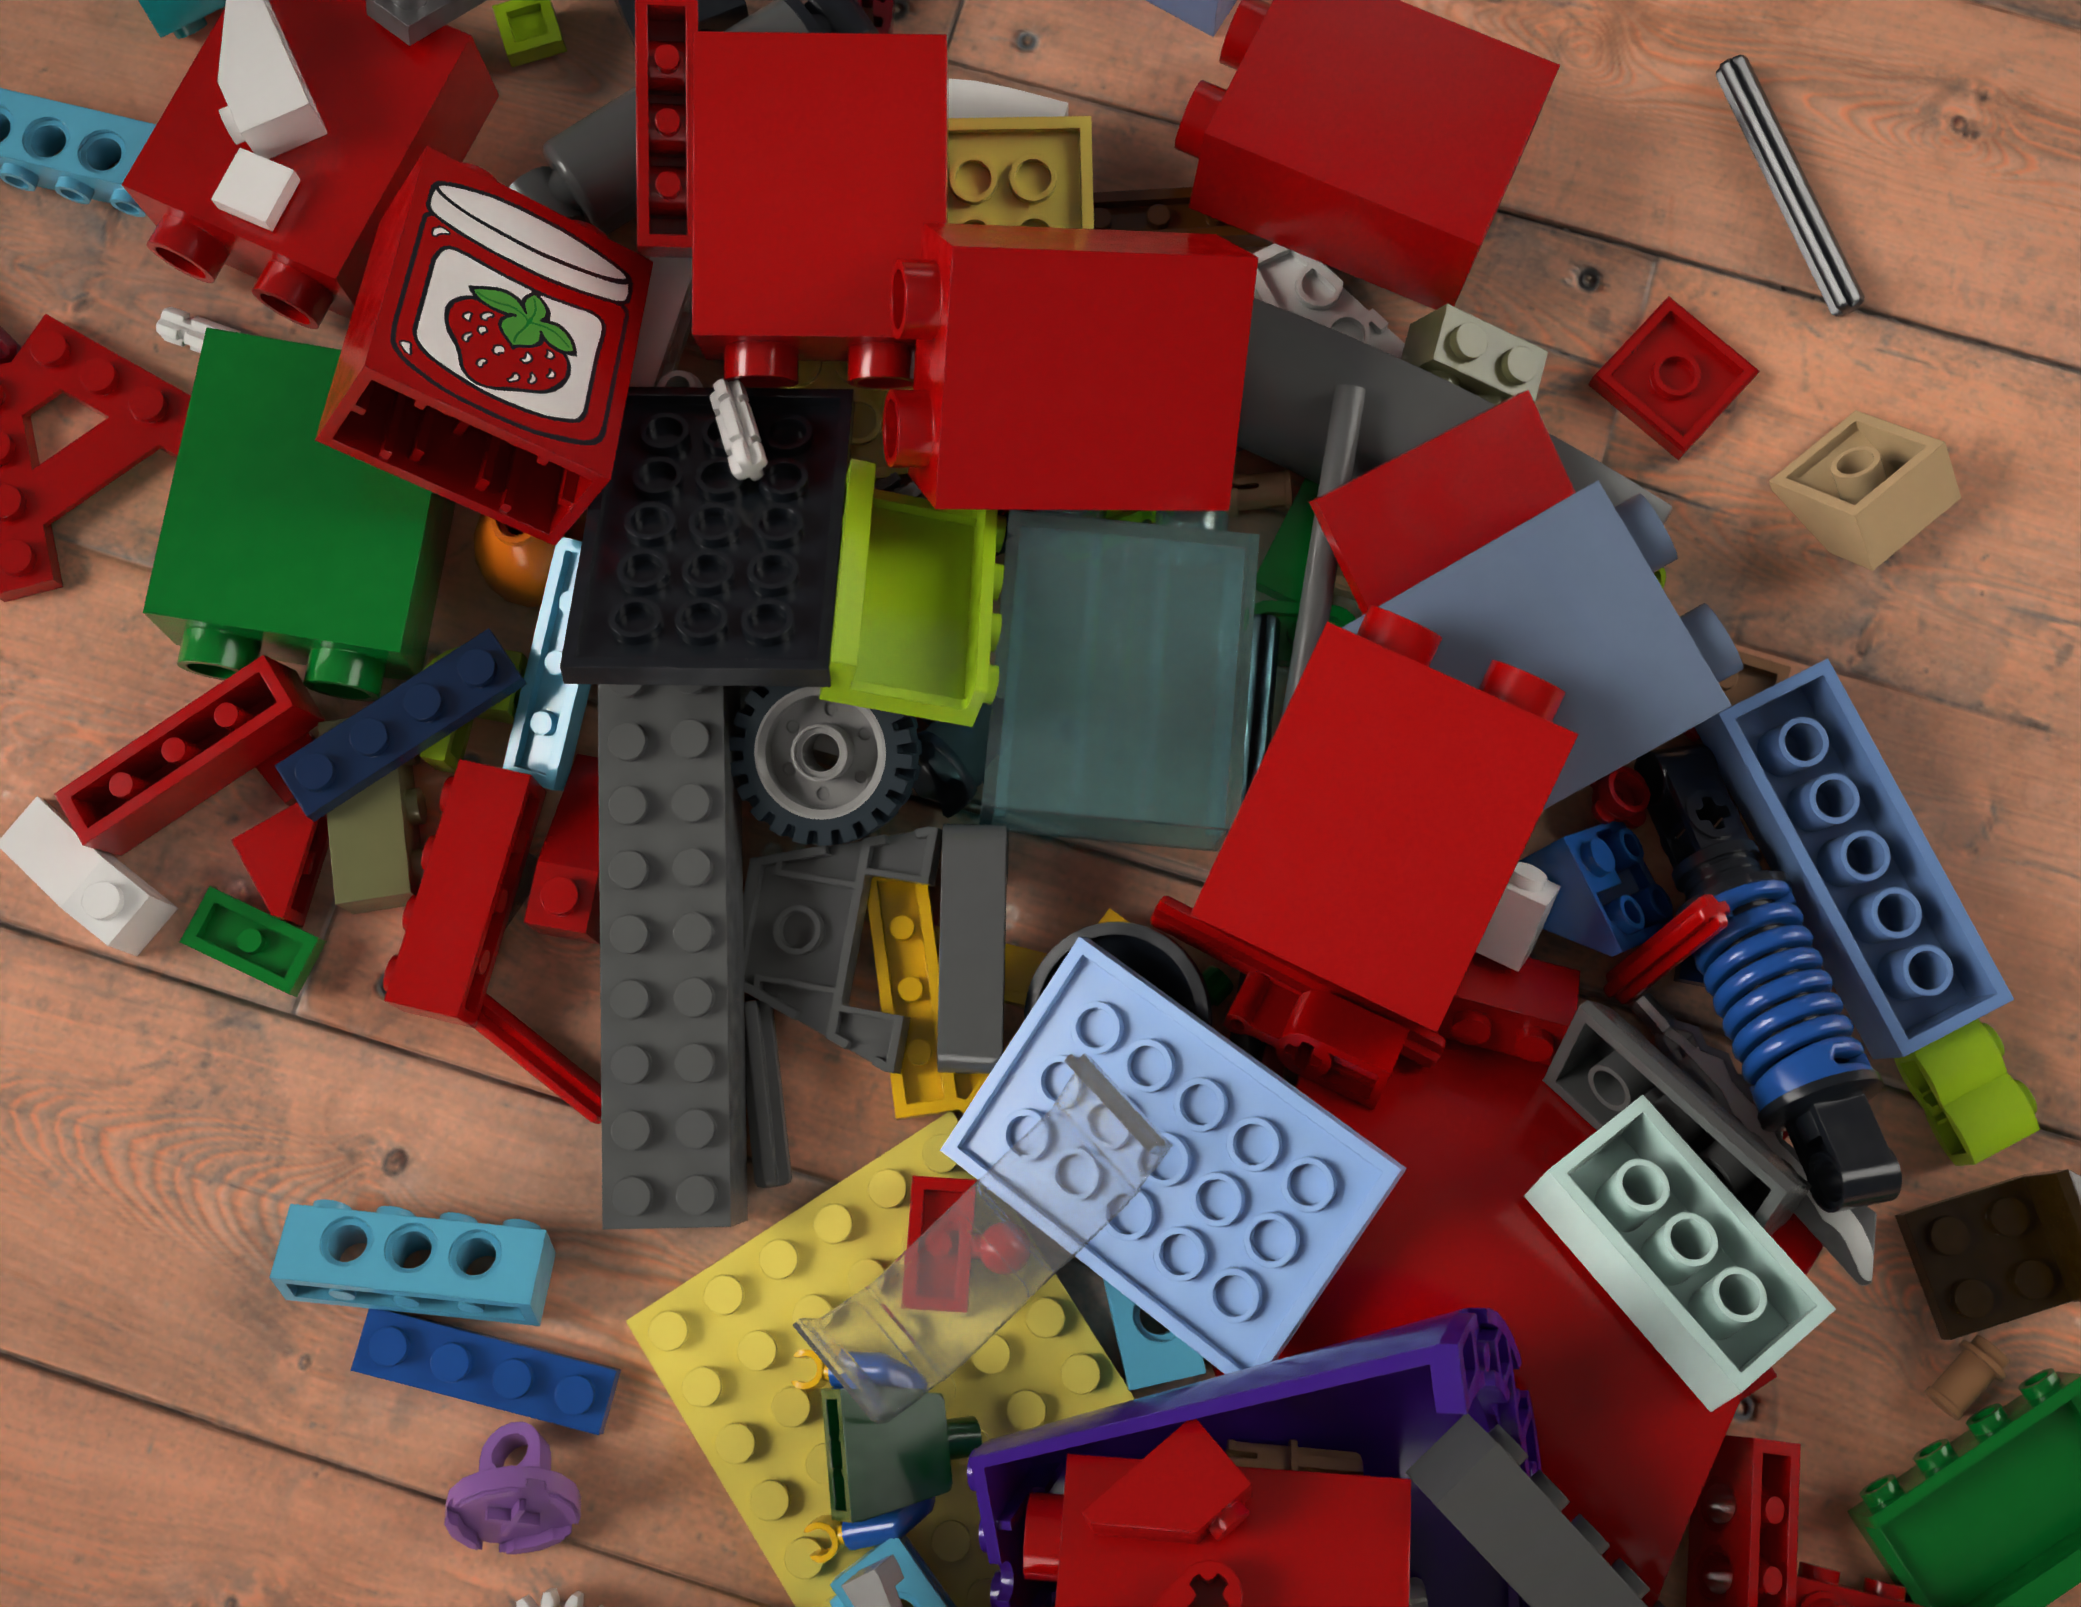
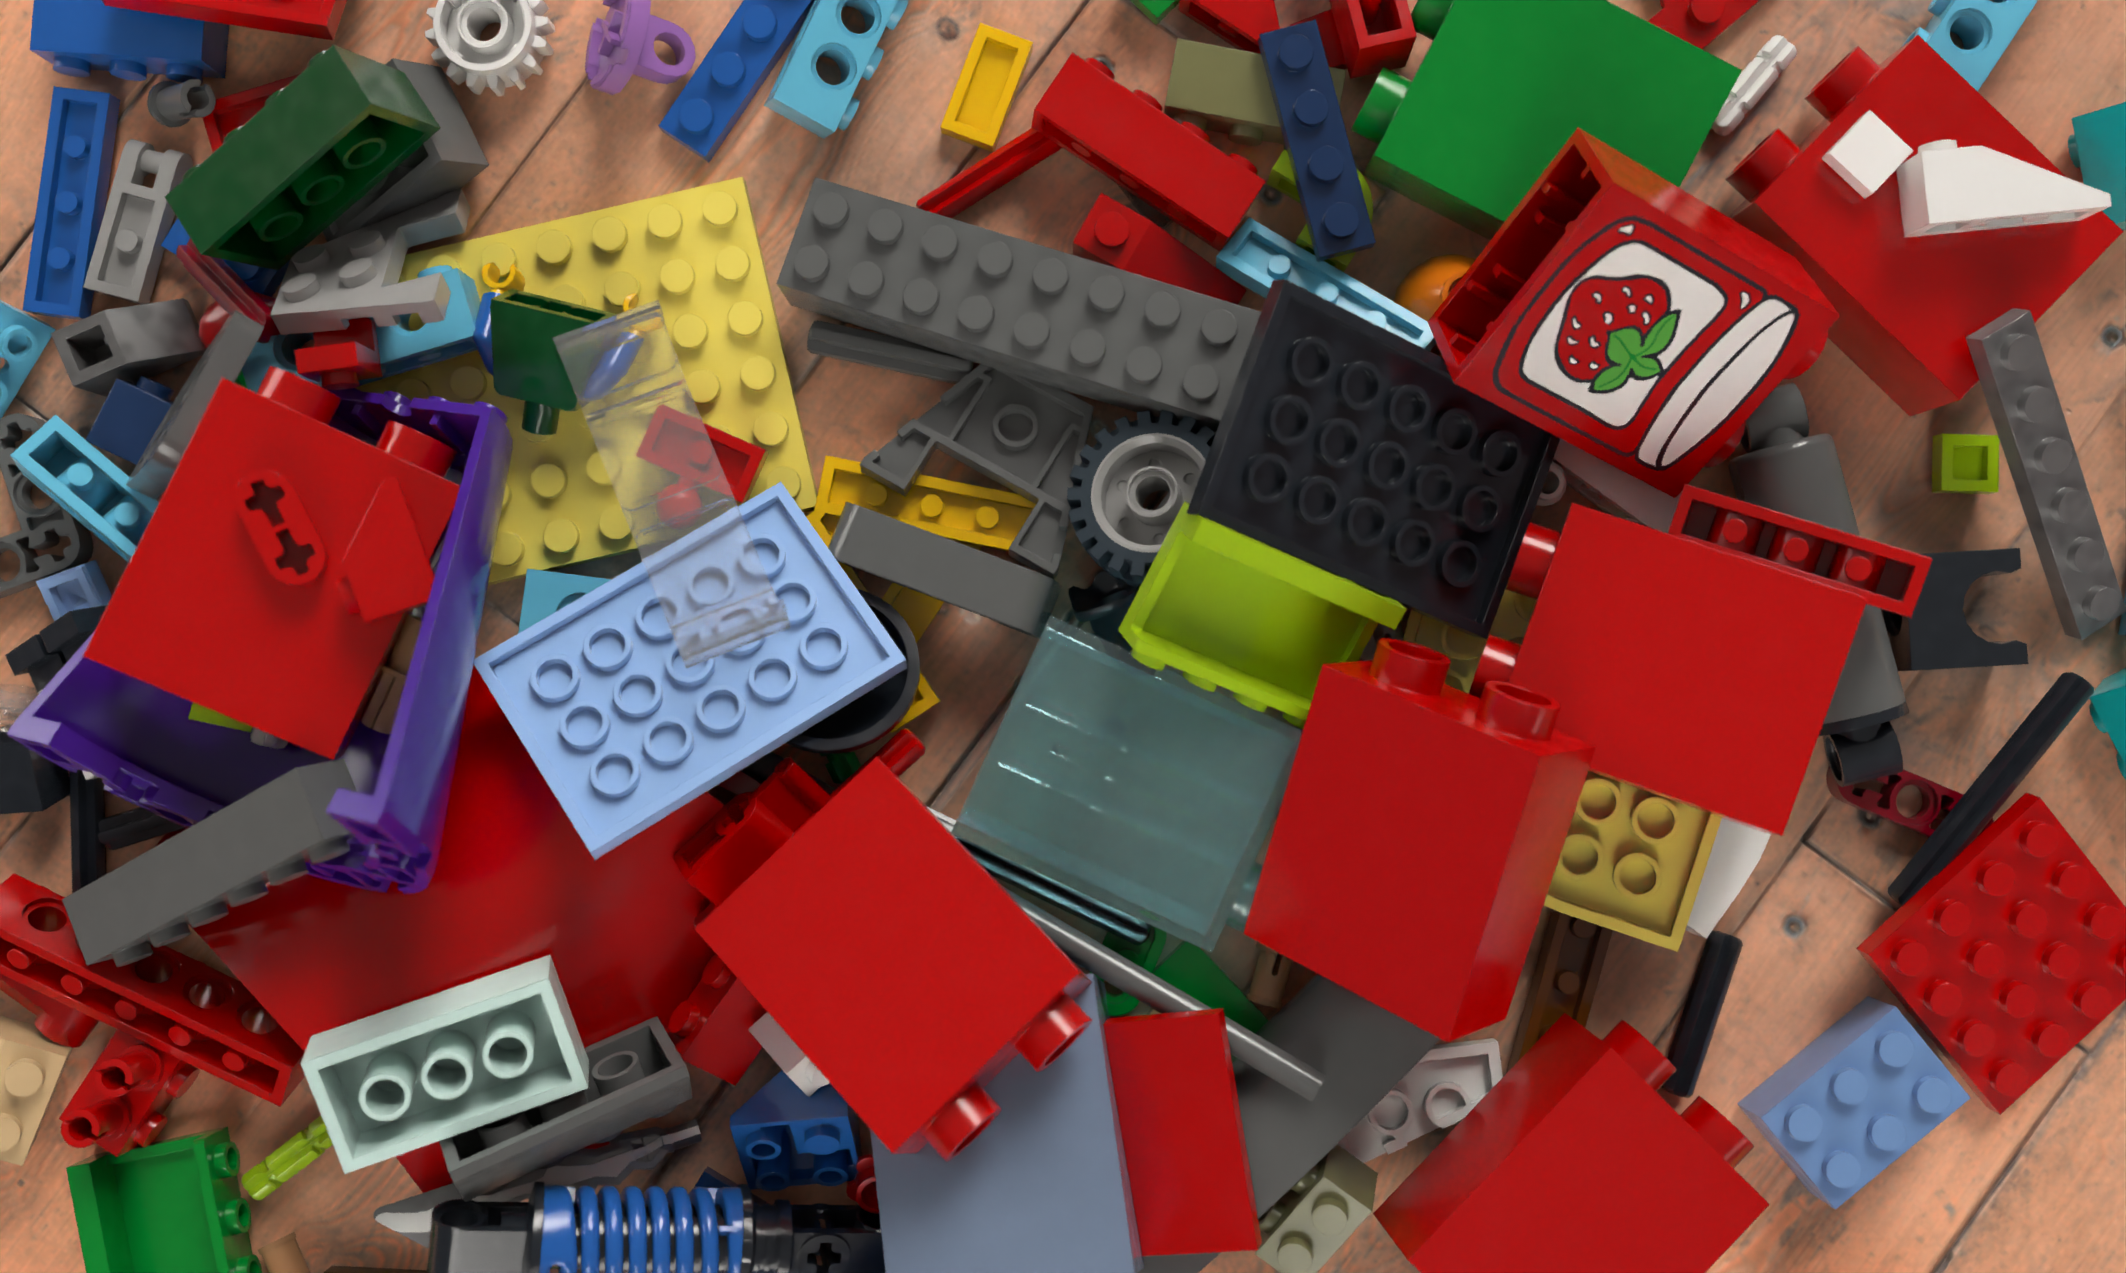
camera: 110 degrees right, 10 degrees up
(446, 1094) = (986, 87): none -> yellow tile
(738, 429) = (1474, 518): white axle -> none
(1131, 91) = (1702, 1012): none -> black axle
(1667, 948) = (719, 1168): red axle -> none
(1845, 1420) = (287, 1160): none -> lime axle

